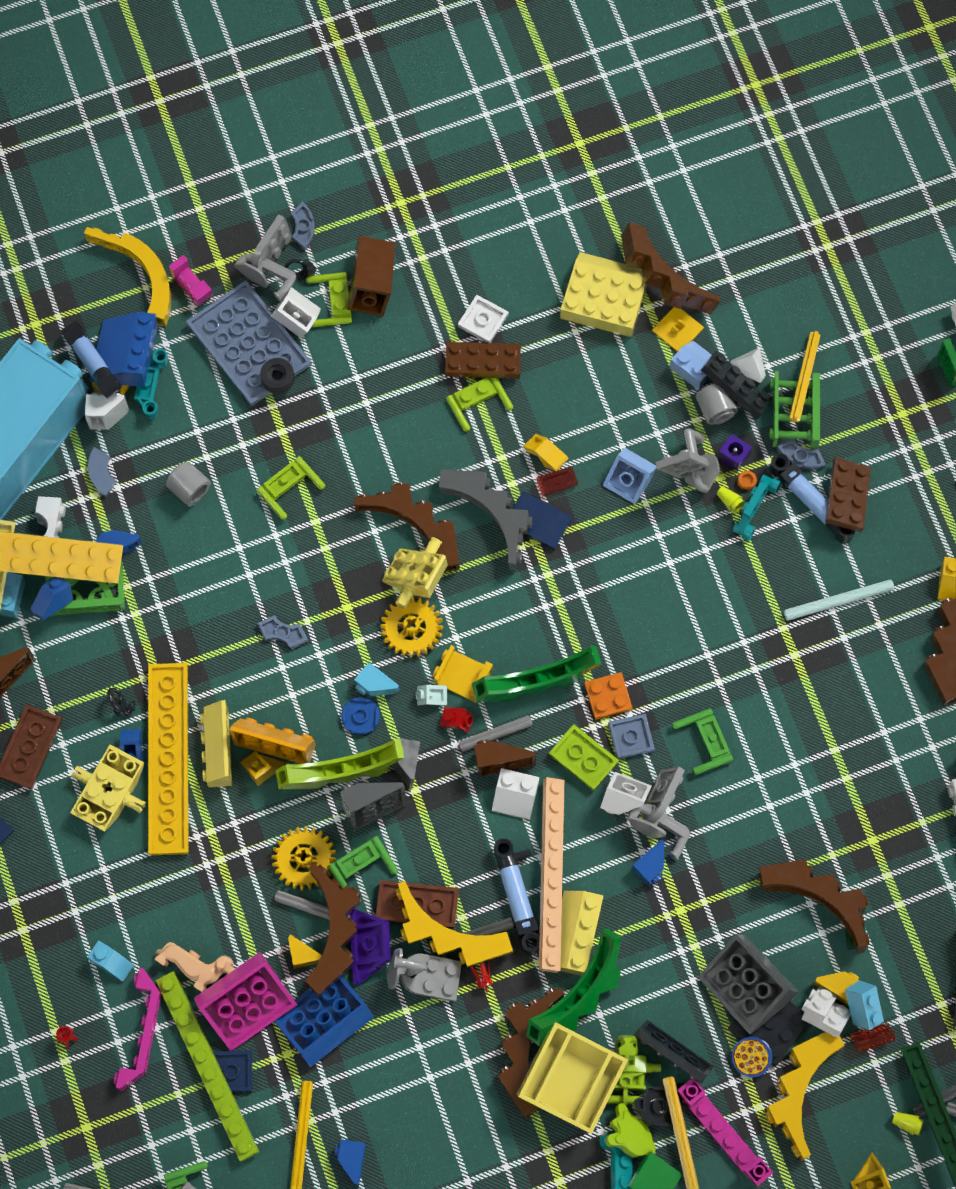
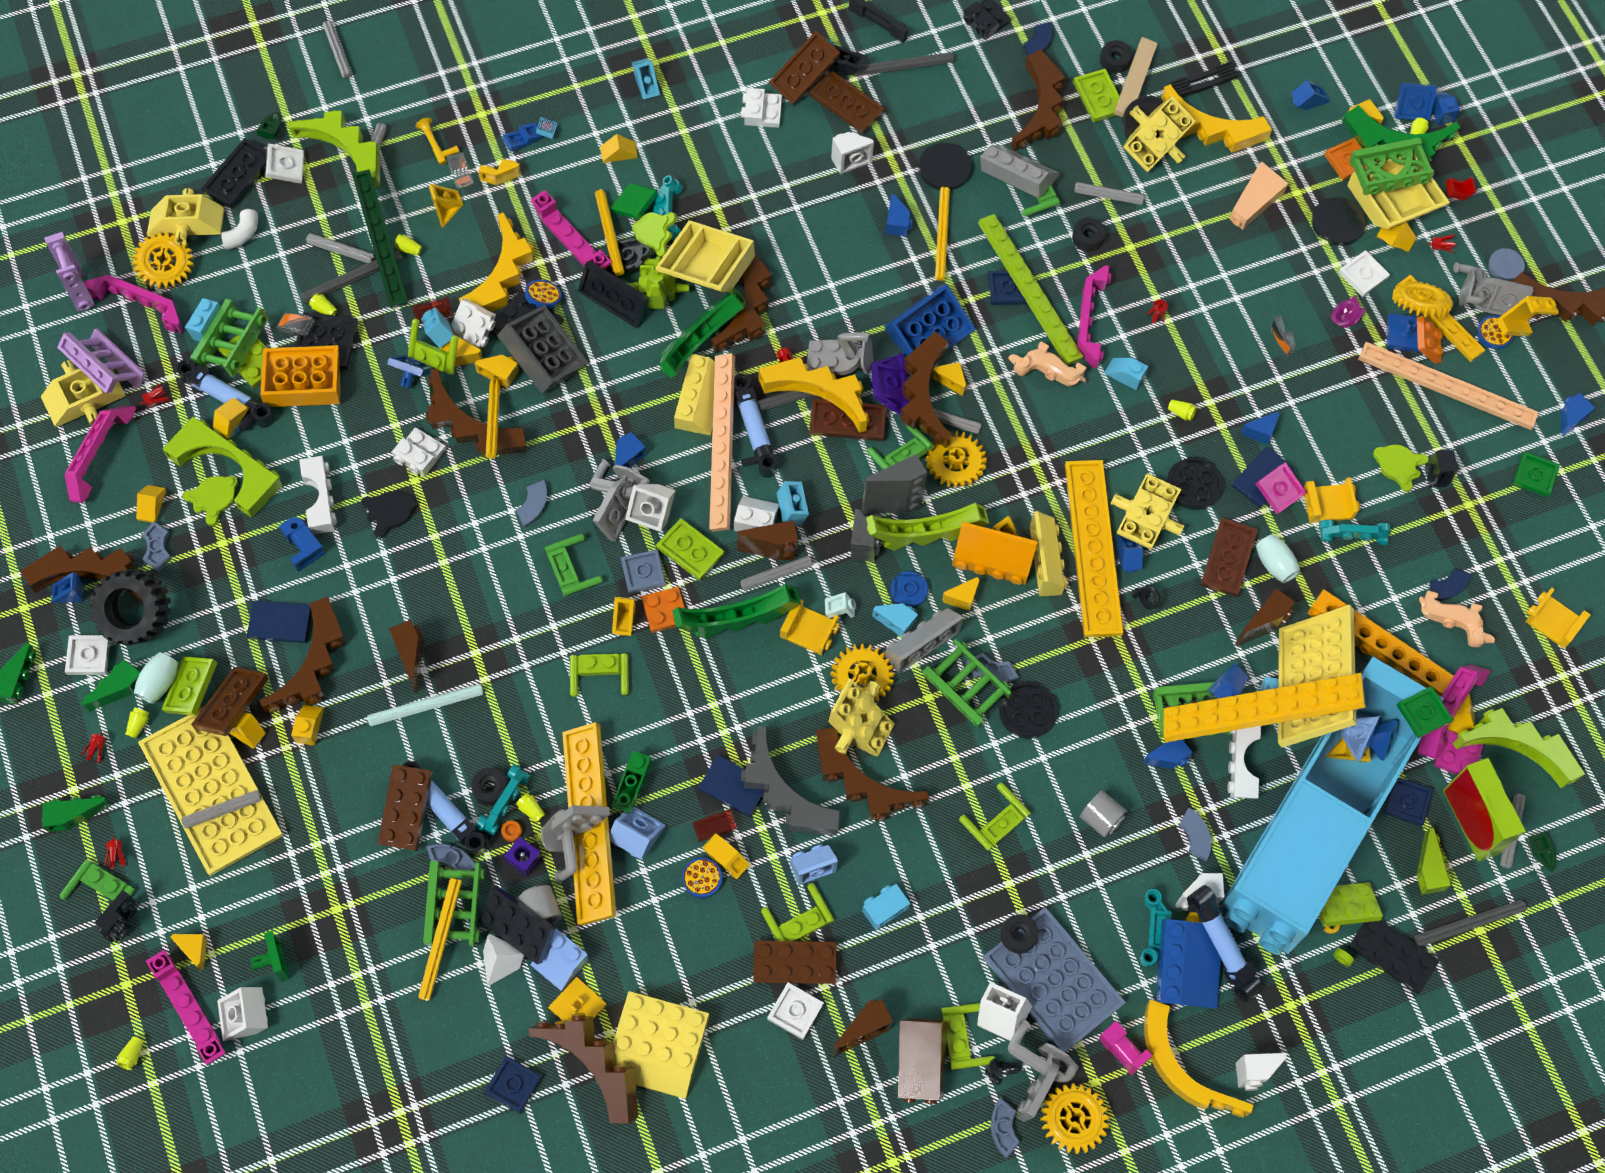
camera: 175 degrees right, 5 degrees down
(52, 832) = (1198, 483): none -> black tile
(54, 915) = (1182, 409): none -> neon yellow cone
(73, 261) = (1257, 1069): none -> white slope
(127, 1128) = (1085, 243): none -> black tyre
(240, 241) = (1085, 1136): none -> yellow gear
(245, 1001) = (1002, 334): dark pink slope -> none
(250, 592) = (1029, 711): none -> black tile
(306, 706) = (962, 595): none -> yellow slope
(315, 595) = (948, 688): none -> bright green fence
(349, 656) = (924, 639): none -> light grey slope
(398, 406) = (885, 906): none -> medium azure brick
(421, 298) = (868, 1024): none -> reddish brown slope
(457, 719) = (815, 584): red bracket -> none
(464, 440) = (813, 864): none -> light blue slope
(478, 802) = (792, 502): none -> medium azure brick
(568, 435) = (702, 878): none -> tile
(635, 519) = (632, 781): none -> green slope
(649, 685) = (623, 616): none -> yellow slope
(671, 639) = (599, 665): none -> lime plate
(675, 493) = (592, 848): none -> yellow plate
(730, 264) = (513, 1084): none -> dark blue tile
(746, 809) = (534, 504): none -> sand blue tile
(770, 508) = (481, 778): none -> black tyre
(794, 964) = (498, 368): none -> yellow slope
(795, 893) = (492, 423): none -> yellow axle
(861, 648) = (408, 643): none -> reddish brown slope
(862, 972) = (430, 354): none -> lime plate
(871, 868) = (418, 452): none -> white plate
(888, 962) = (411, 368): none -> blue tile
(894, 804) = (389, 510): none -> black tile

